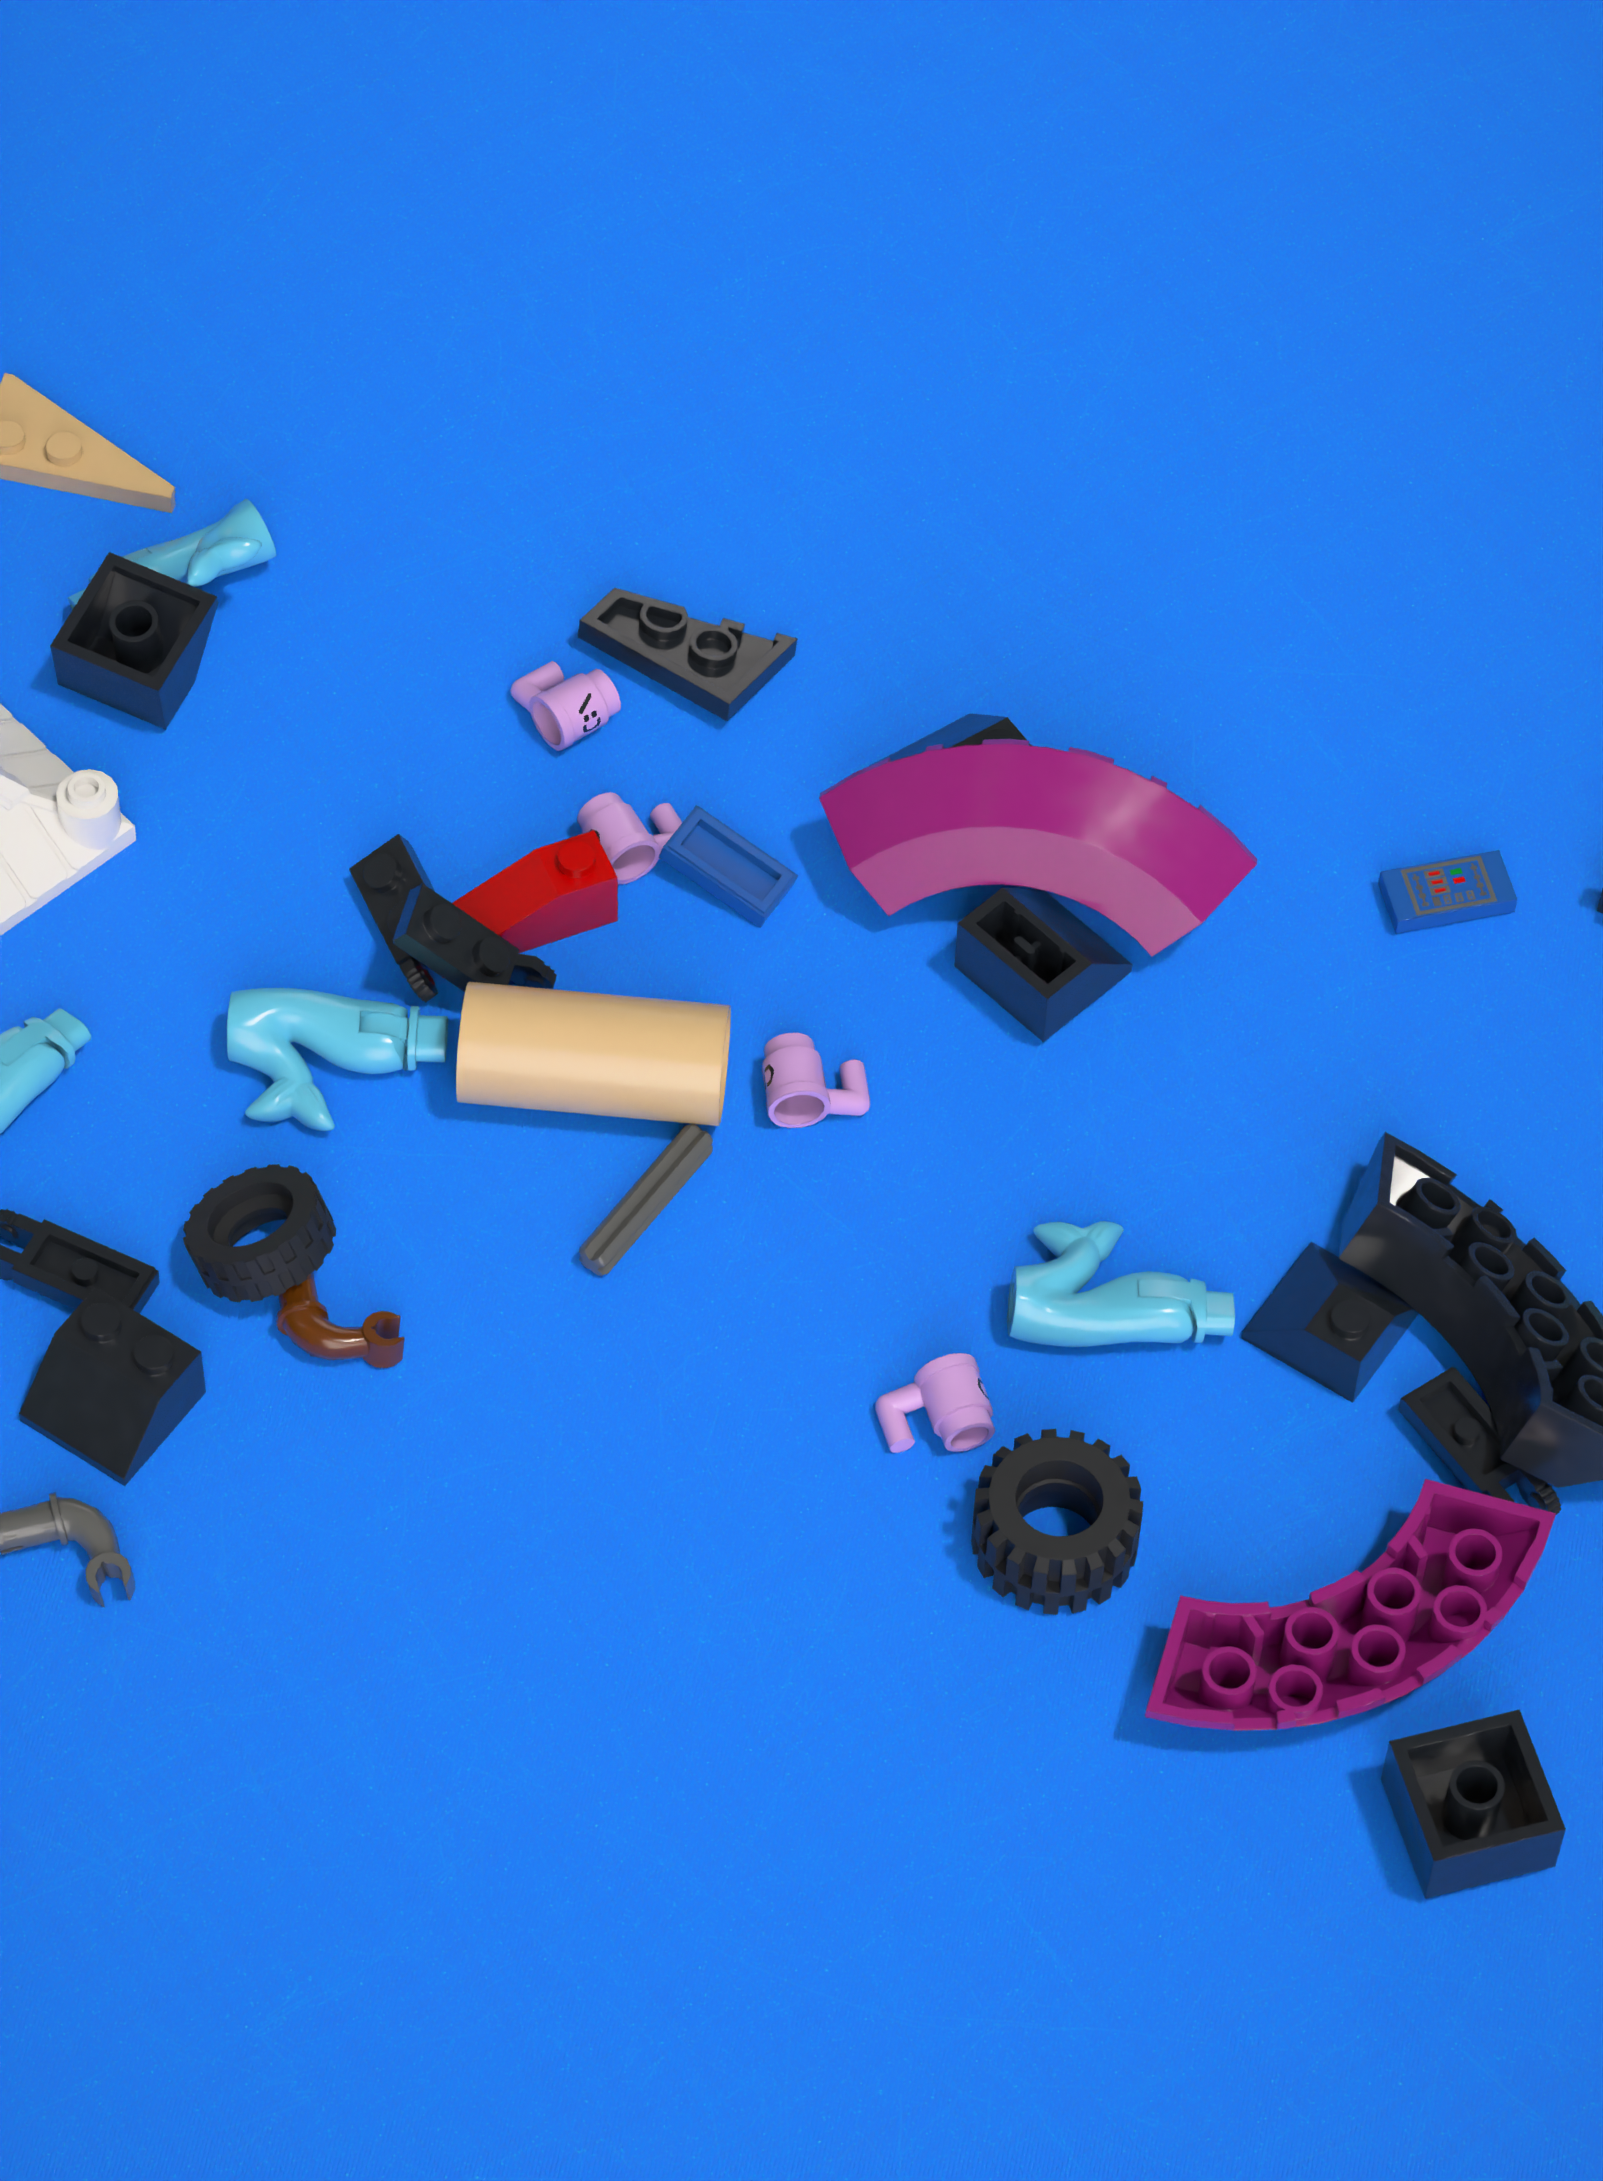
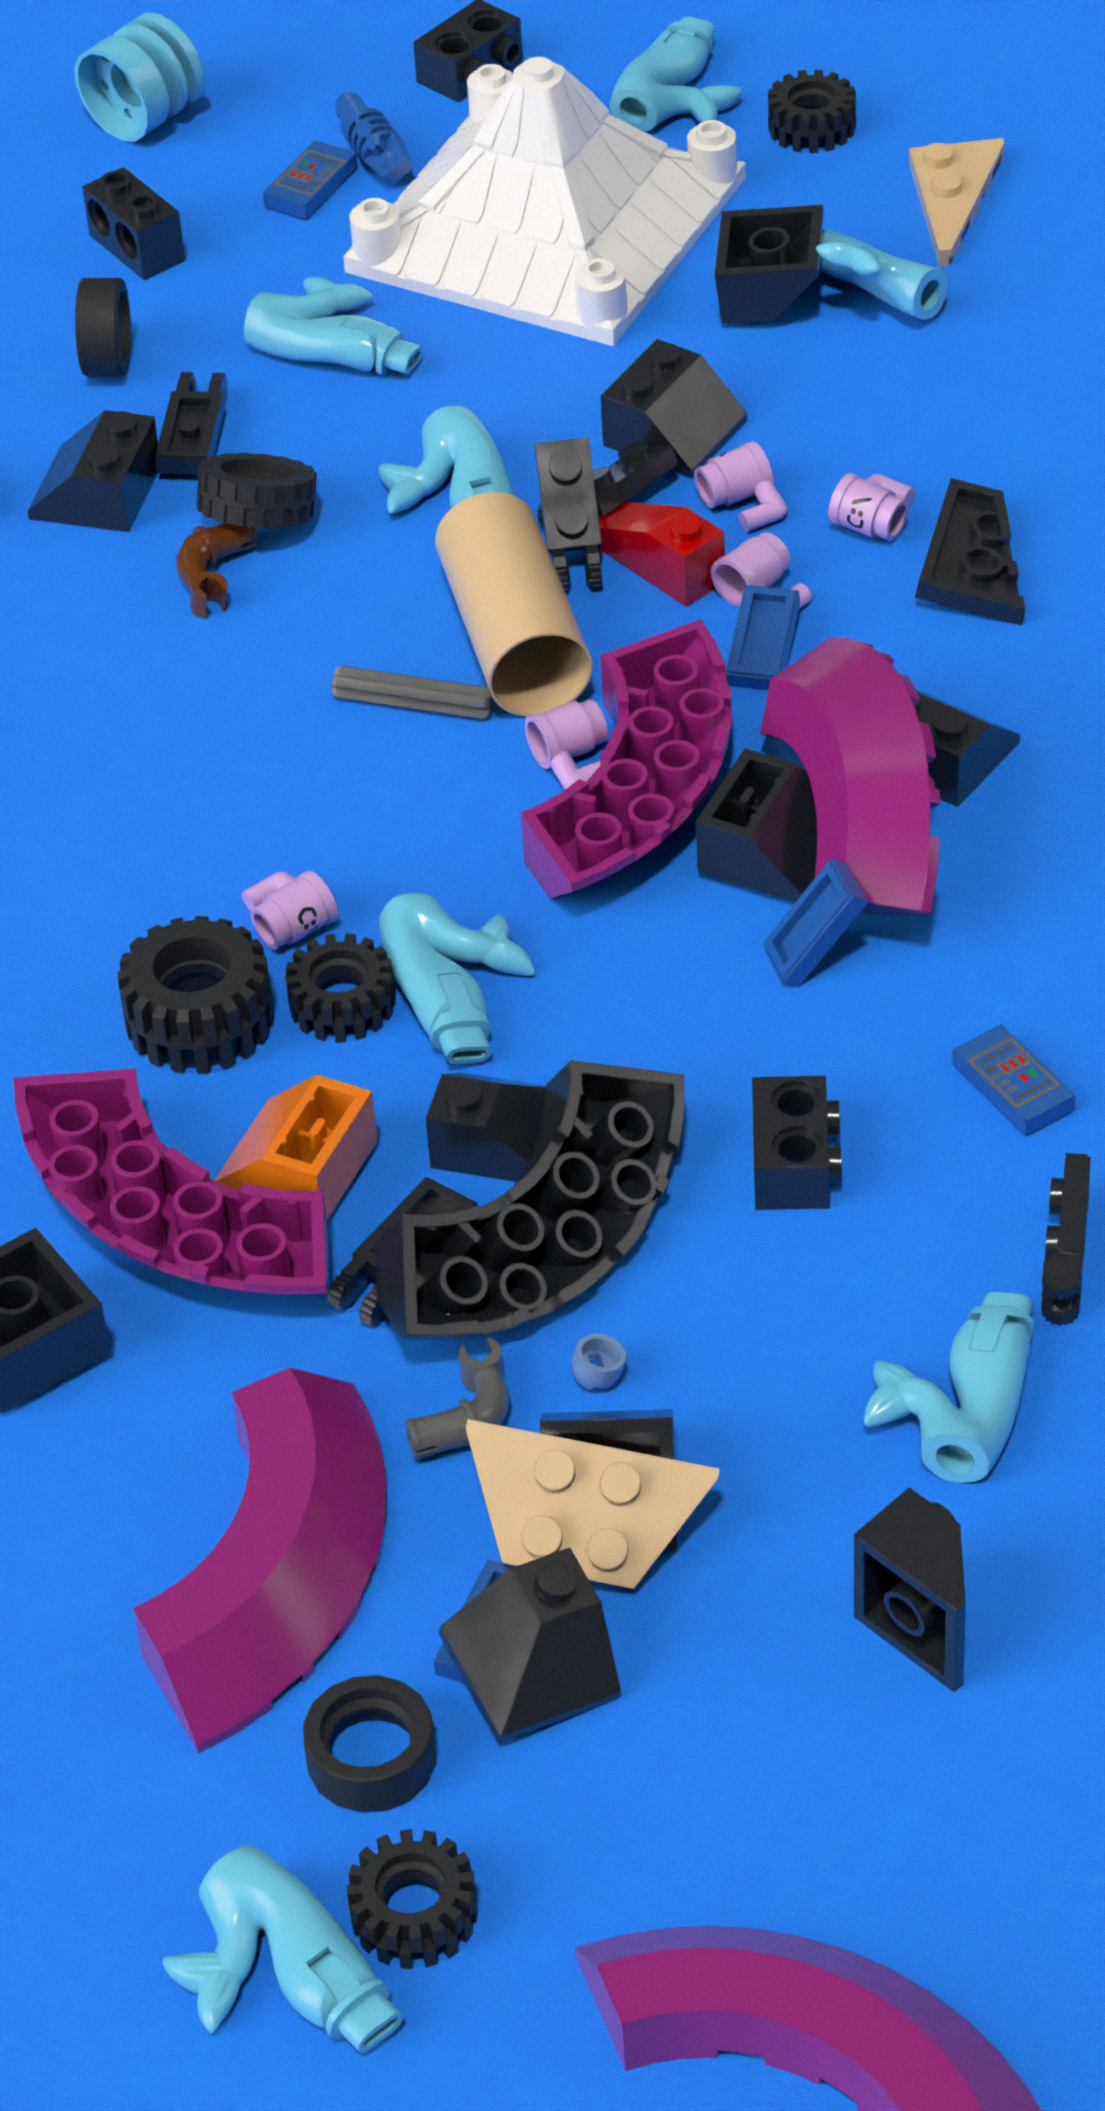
camera: 75 degrees right, 10 degrees down
(309, 820) = (672, 401): none -> black slope
(459, 795) = (737, 477): none -> lavender piece
(914, 1023) = (663, 755): none -> magenta brick
(1090, 1364) = (346, 1010): none -> black tyre
(1206, 959) = (815, 922): none -> blue tile
(1320, 1494) = (306, 1140): none -> orange slope
(1470, 1098) = (792, 1142): none -> black brick

